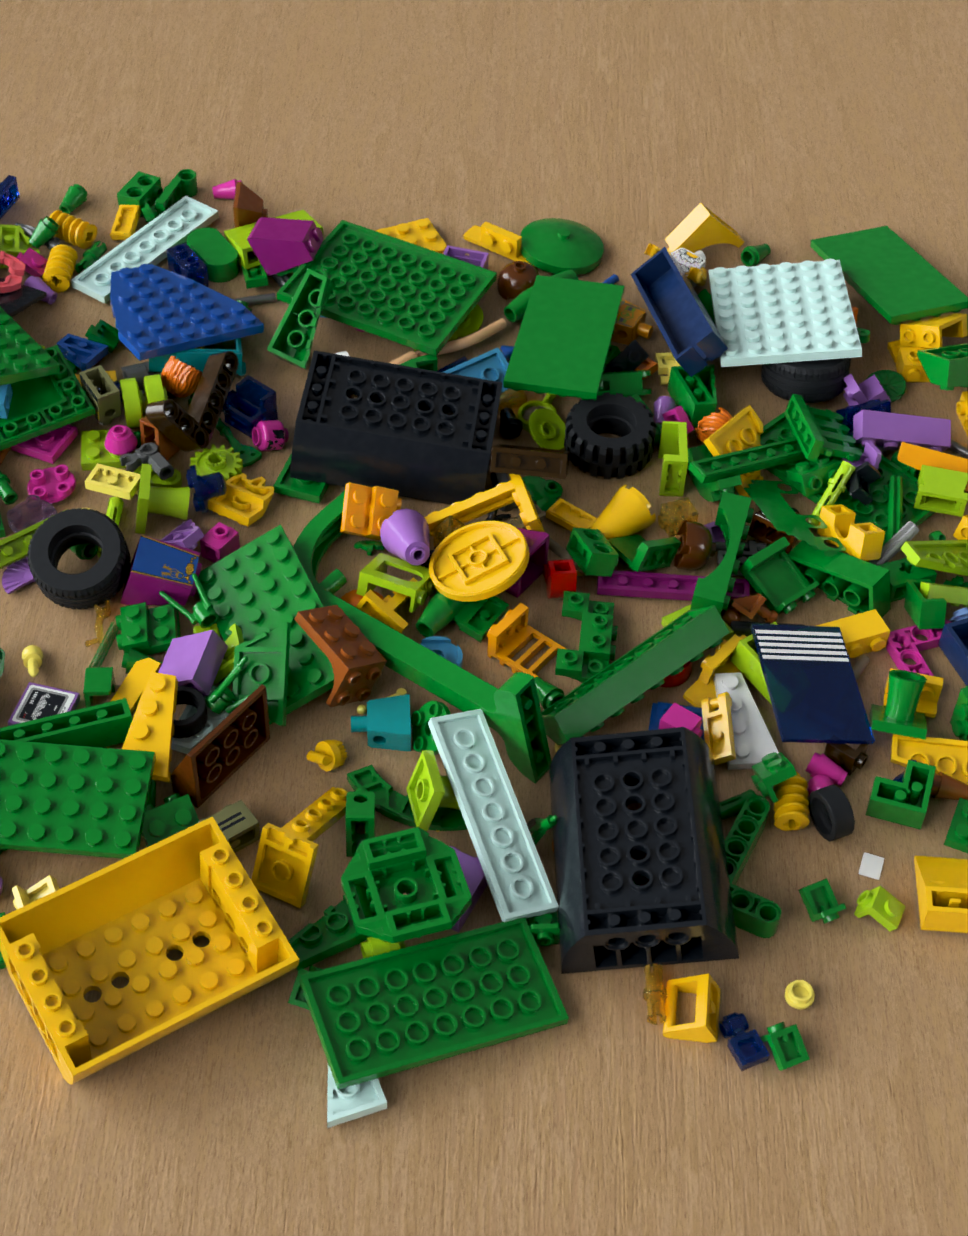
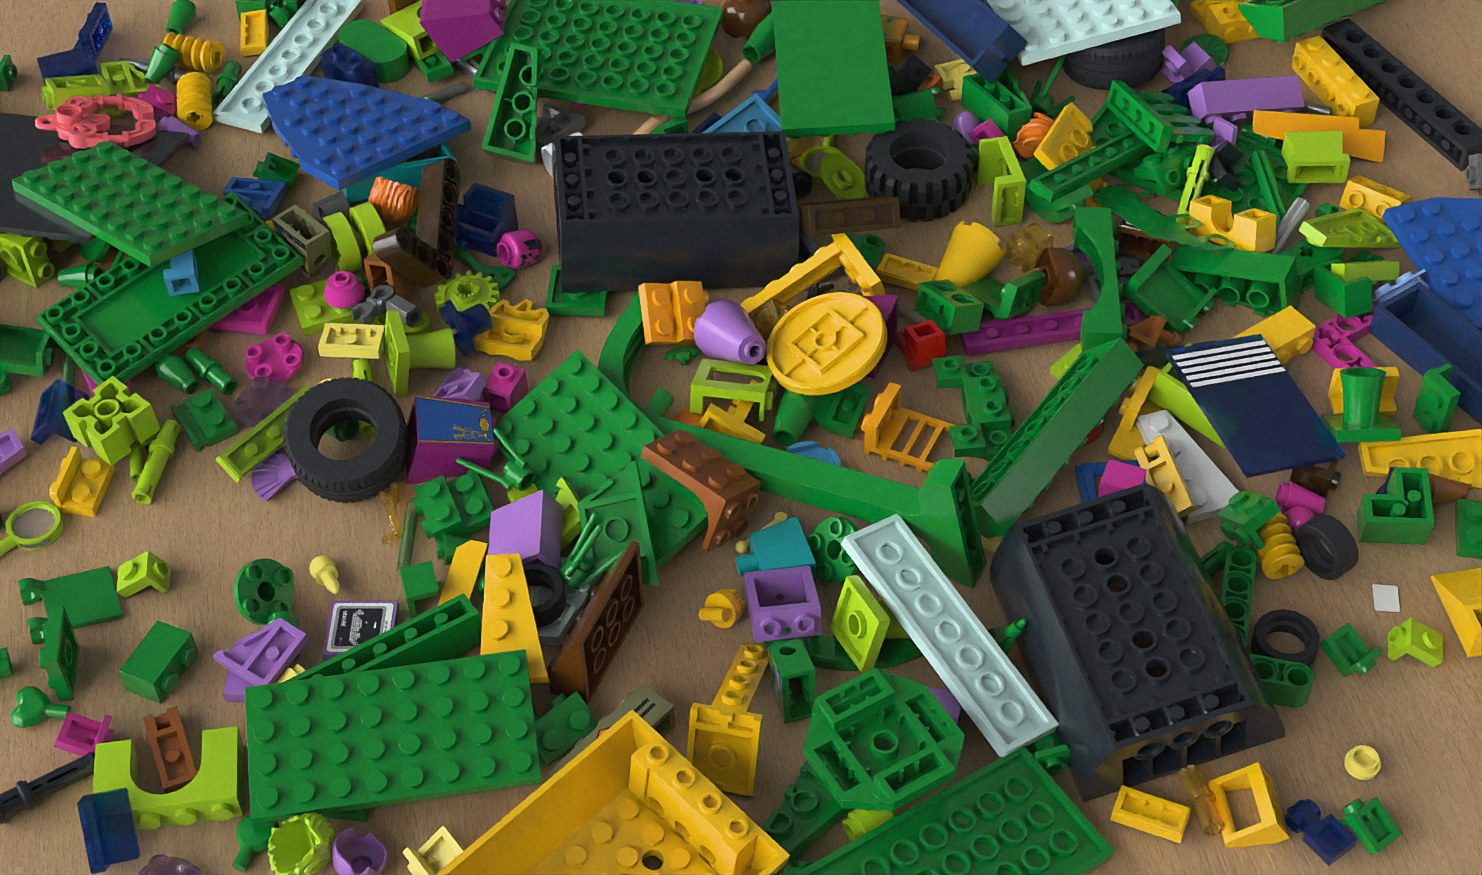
camera: 10 degrees left, 0 degrees up
(334, 341) = (556, 122): none -> flat silver wing
(375, 748) = (778, 588): none -> medium lavender window
(610, 995) = (1150, 814): none -> yellow plate
(734, 401) = (1043, 102): none -> green plant
(777, 866) = (1288, 622): none -> black tyre

